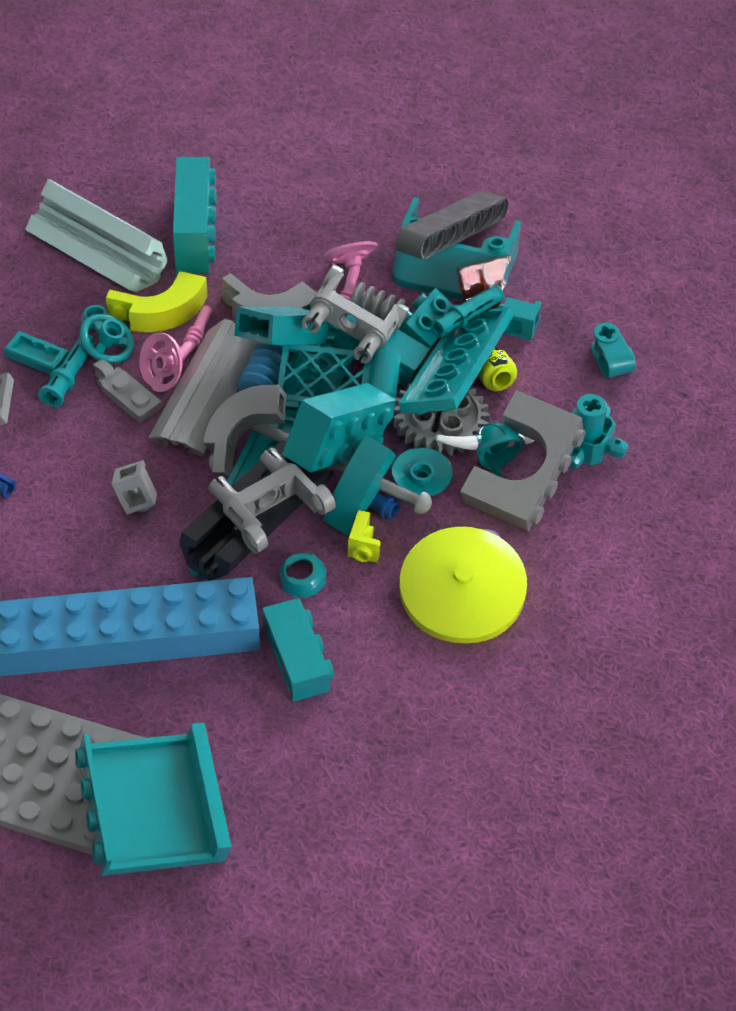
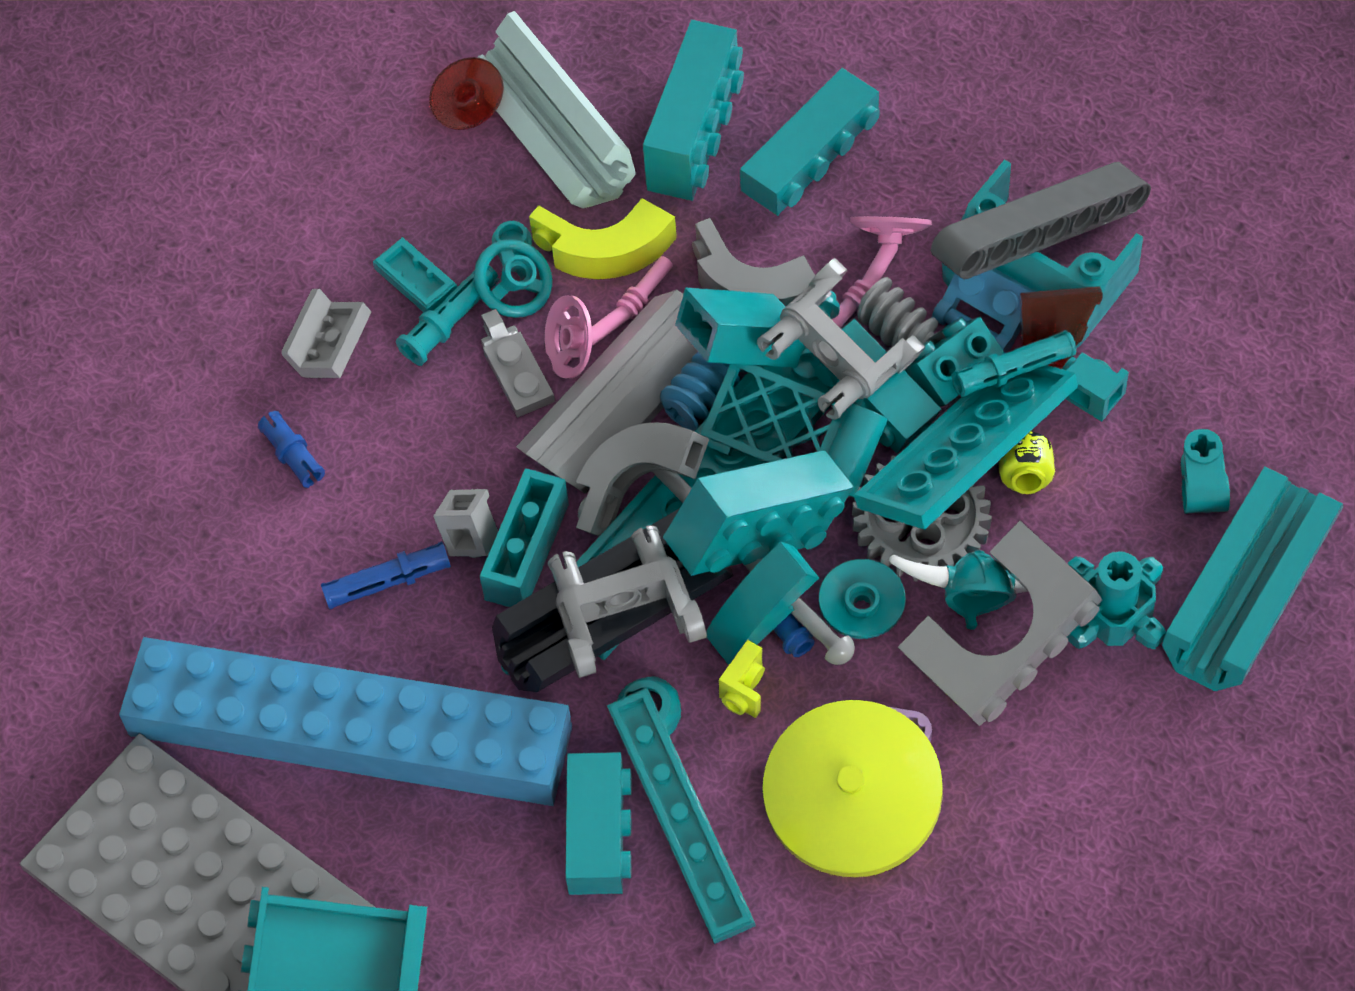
camera: 25 degrees right, 10 degrees up
(31, 238) = (457, 85): none -> clear red dish
(96, 529) = (386, 575): none -> blue pin
(178, 487) = (524, 538): none -> teal brick
(276, 221) = (810, 142): none -> teal brick
(353, 630) = (681, 816): none -> teal tile
(428, 276) = (990, 293): none -> dark azure plate
(667, 406) = (1248, 581): none -> teal piece

